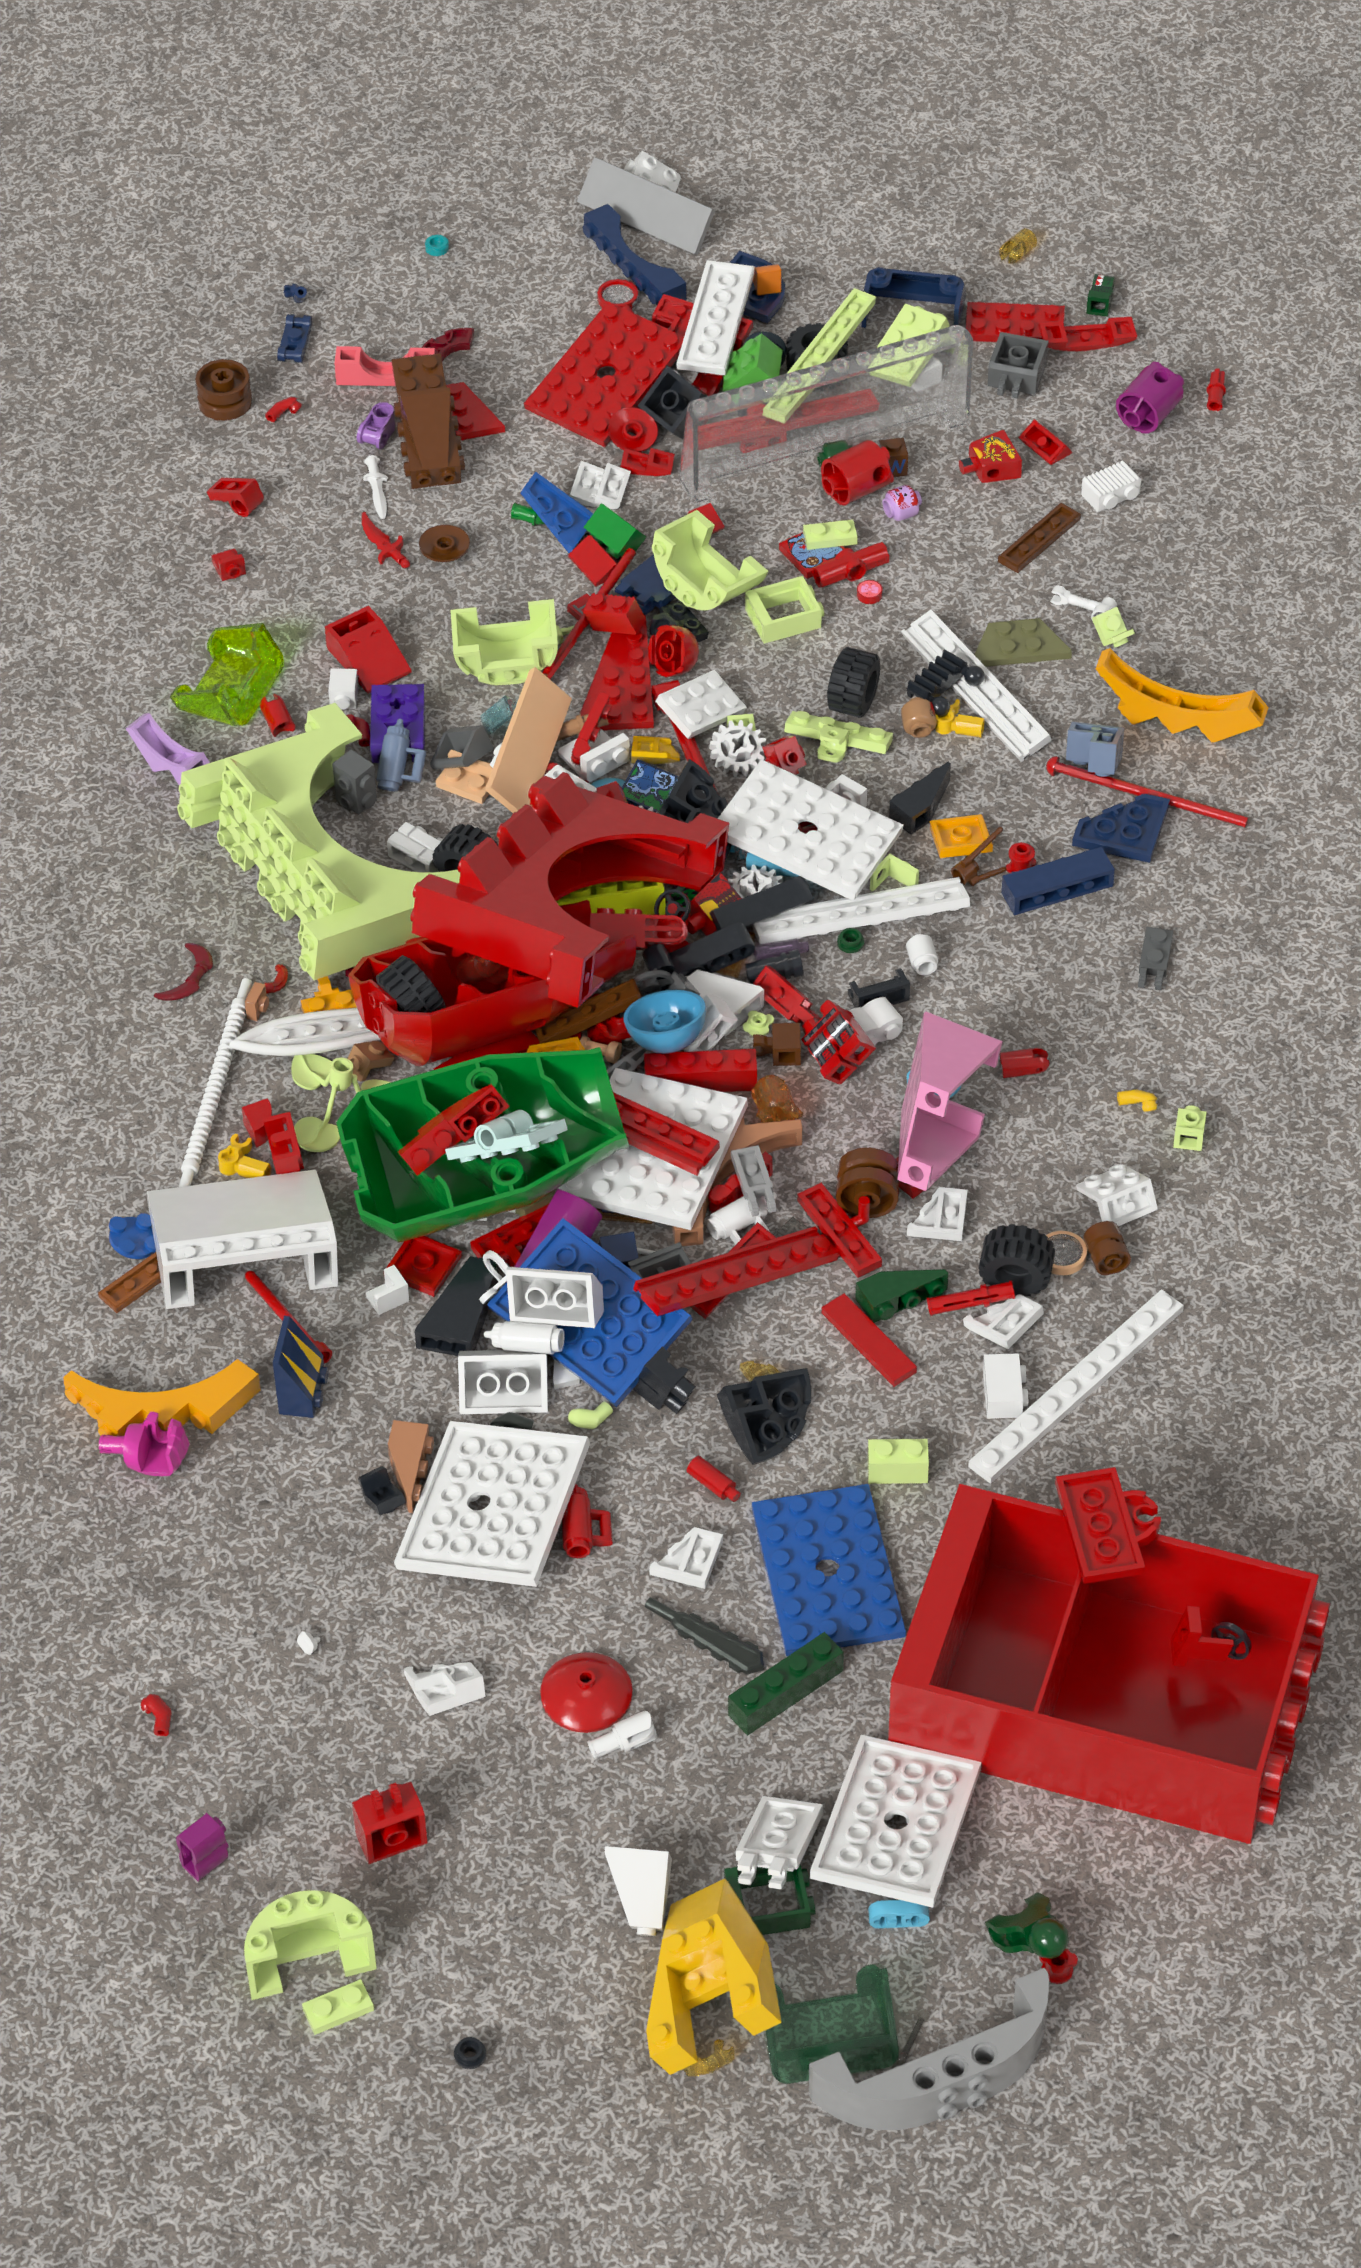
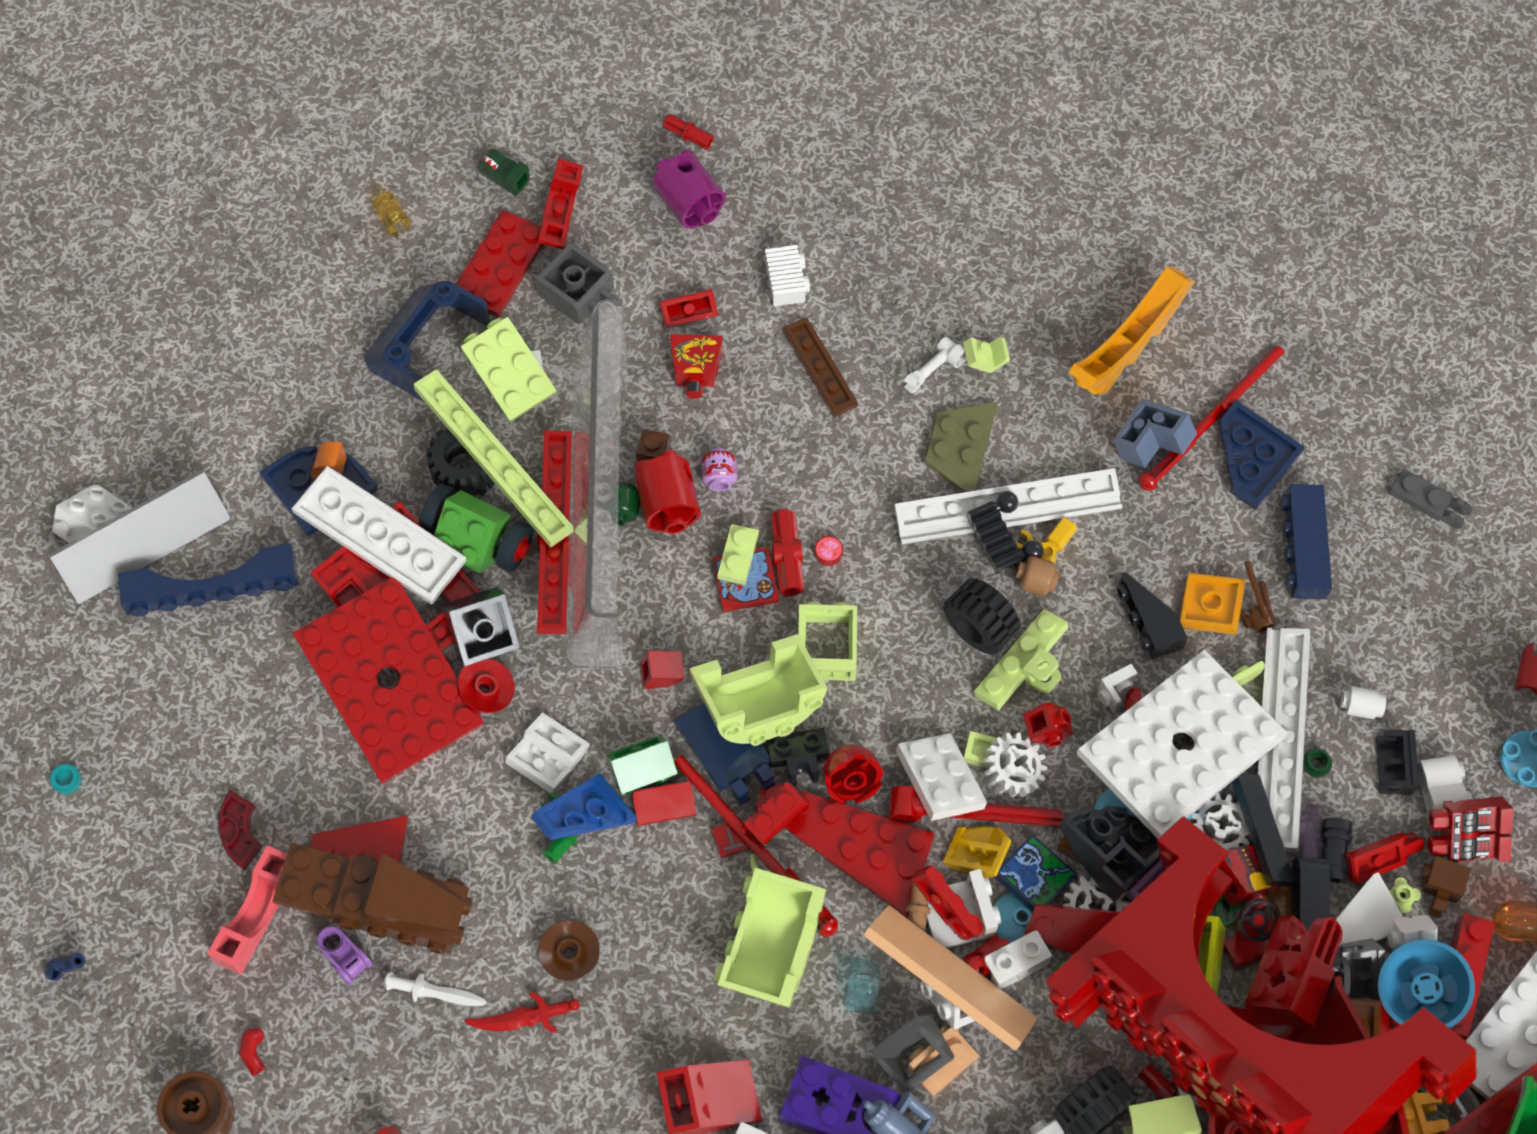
camera: 70 degrees left, 15 degrees up
(294, 340) = (139, 995): dark blue plate -> none
(619, 293) = (258, 620): piece -> none
(655, 464) = (535, 691): red slope -> none
(1021, 857) = (1264, 561): red brick -> none

